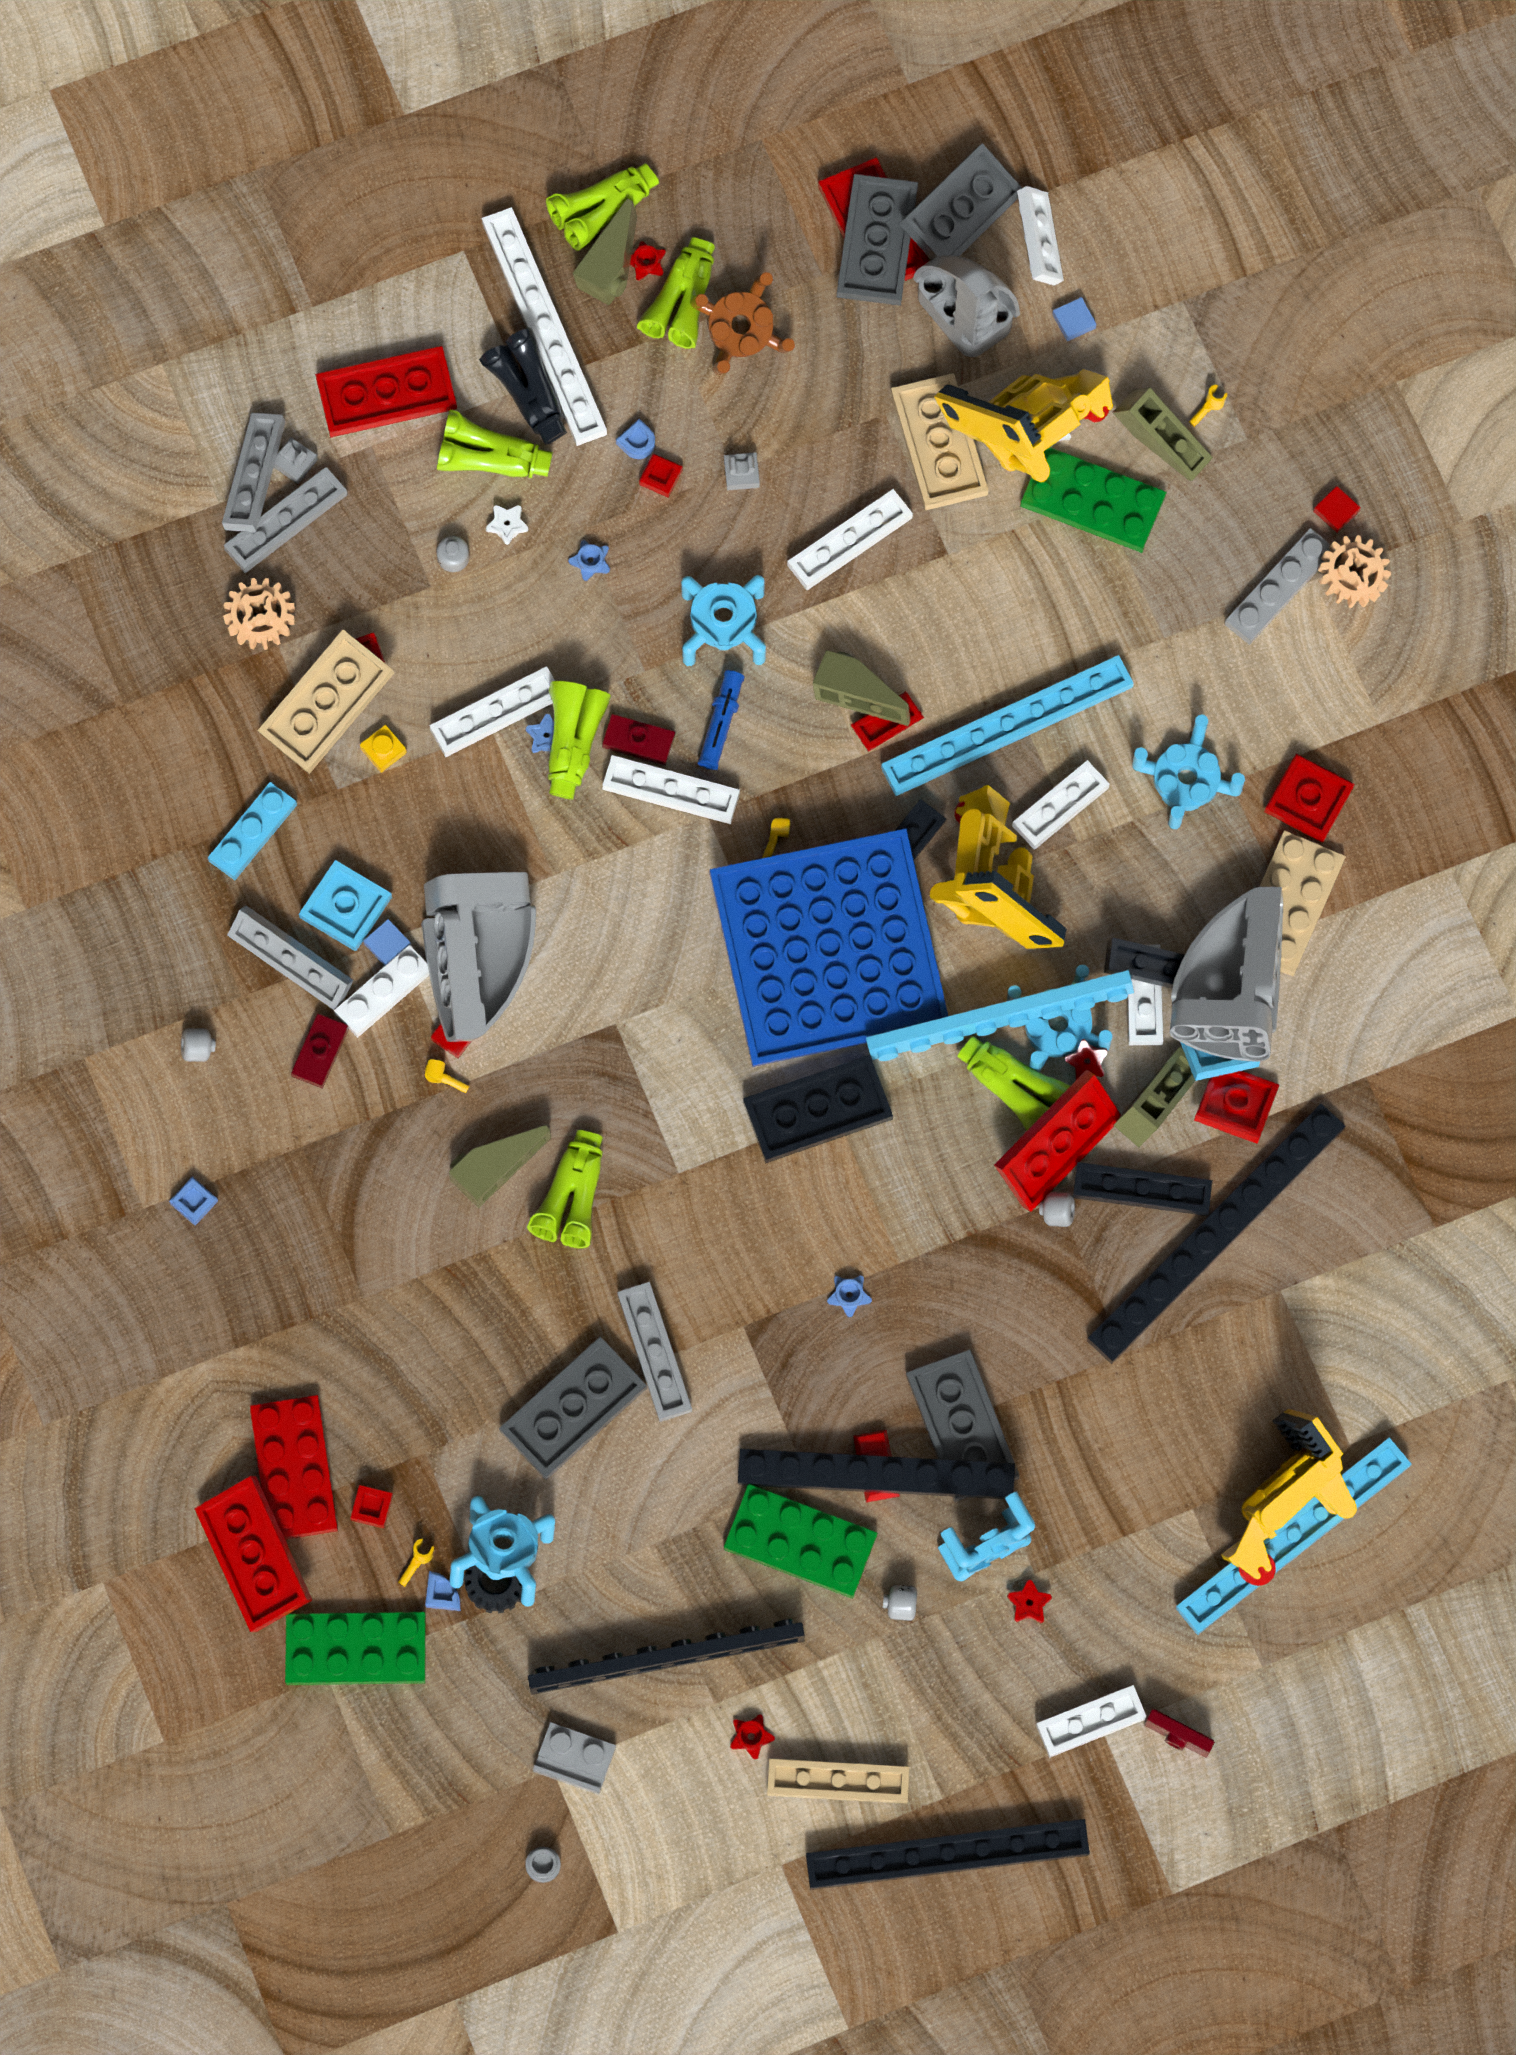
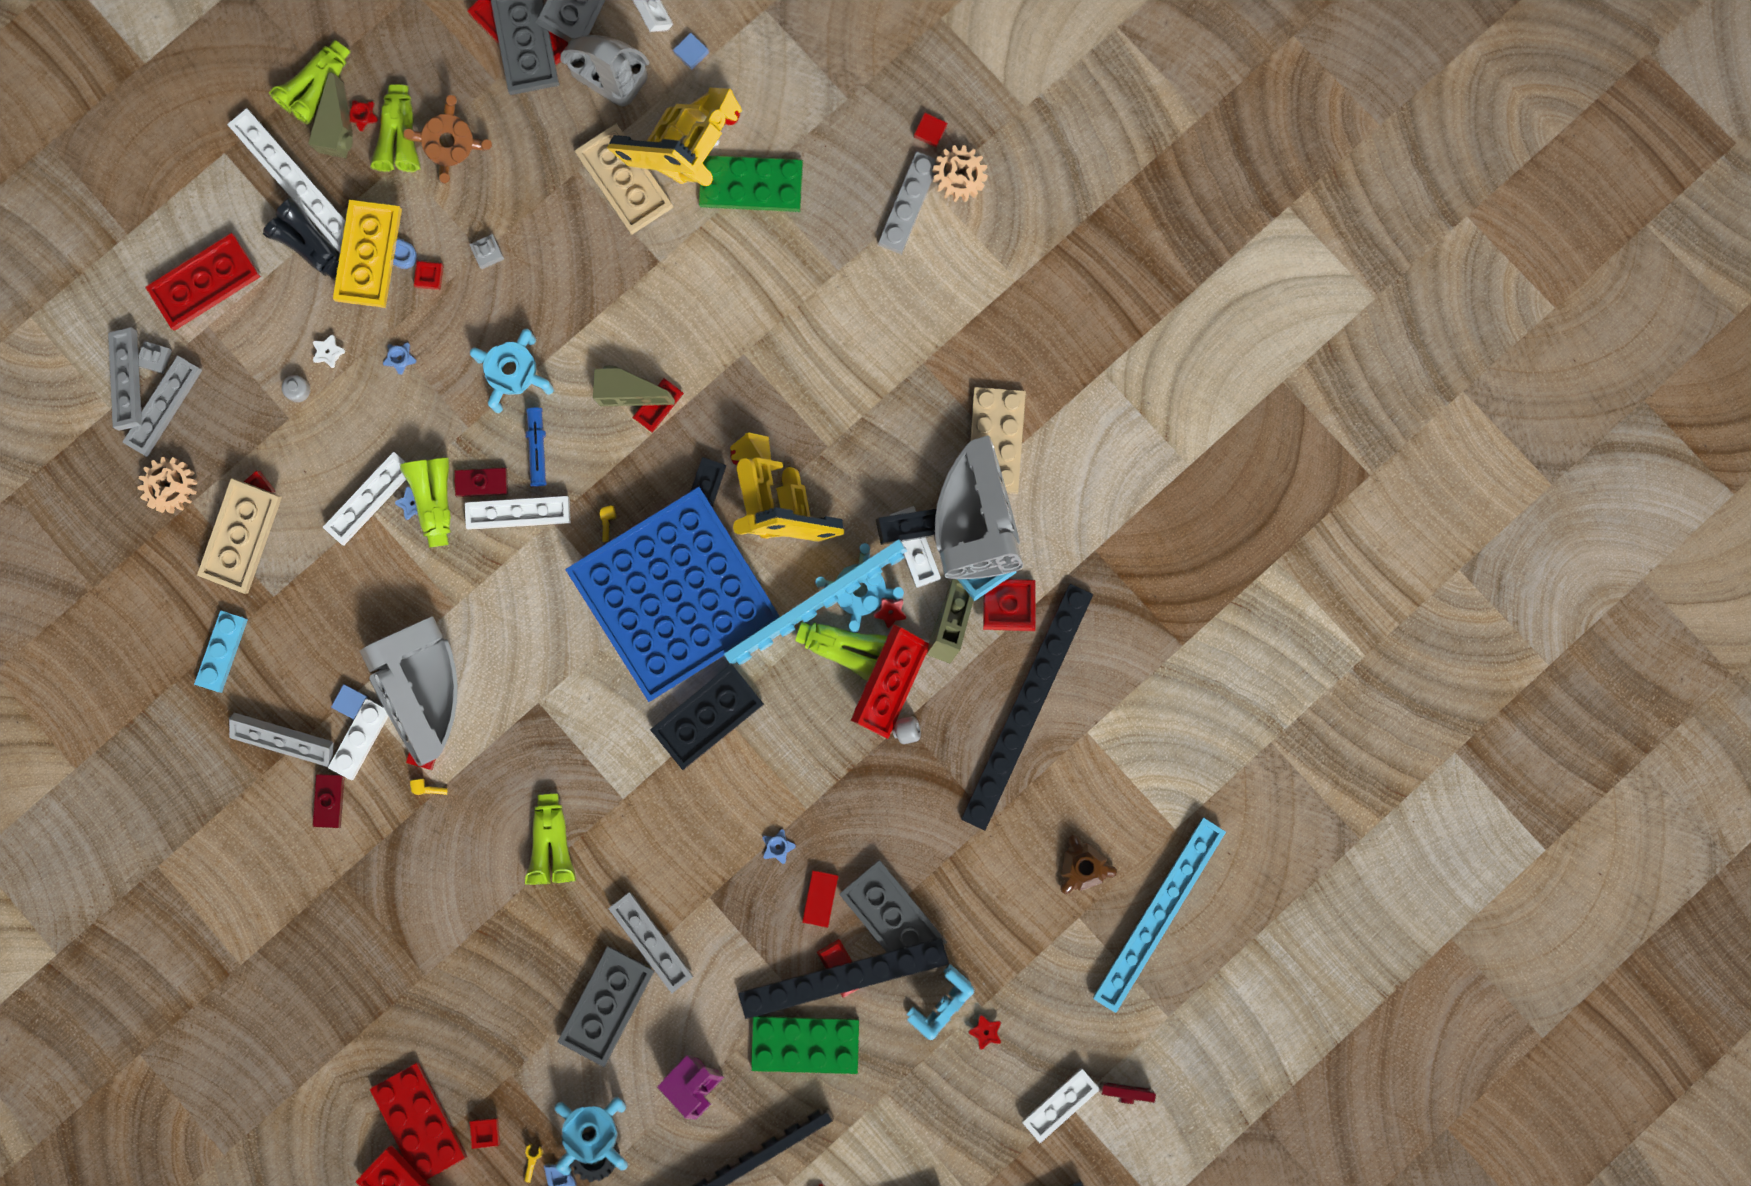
camera: 15 degrees left, 10 degrees up
(193, 1201) = (275, 947): medium blue tile -> none
(197, 1044) = (236, 829): light grey piece -> none
(345, 905) = (308, 685): medium azure plate -> none
(383, 748) = (295, 555): yellow plate -> none
(493, 1164) = (482, 847): olive slope -> none
(499, 451) = (308, 298): lime piece -> none
(598, 424) = (367, 253): none -> yellow plate
(646, 1533) = (689, 1085): none -> magenta plate
(850, 539) = (583, 276): white plate -> none
(880, 1373) = (820, 899): none -> red tile
(901, 1602) = (894, 1067): light grey piece -> none
(1007, 725) = (746, 378): medium azure plate -> none
(1060, 805) = (806, 424): white plate -> none
(1142, 1189) = (963, 693): black plate -> none
(1162, 432) = (784, 115): olive slope -> none
(1192, 758) = (890, 355): medium azure plate -> none
(1211, 403) = (812, 80): yellow hand -> none
(1220, 1447) = (1083, 867): none -> reddish brown rock
(1307, 1474) = (1148, 895): yellow container -> none
(1309, 798) = (984, 356): red plate -> none

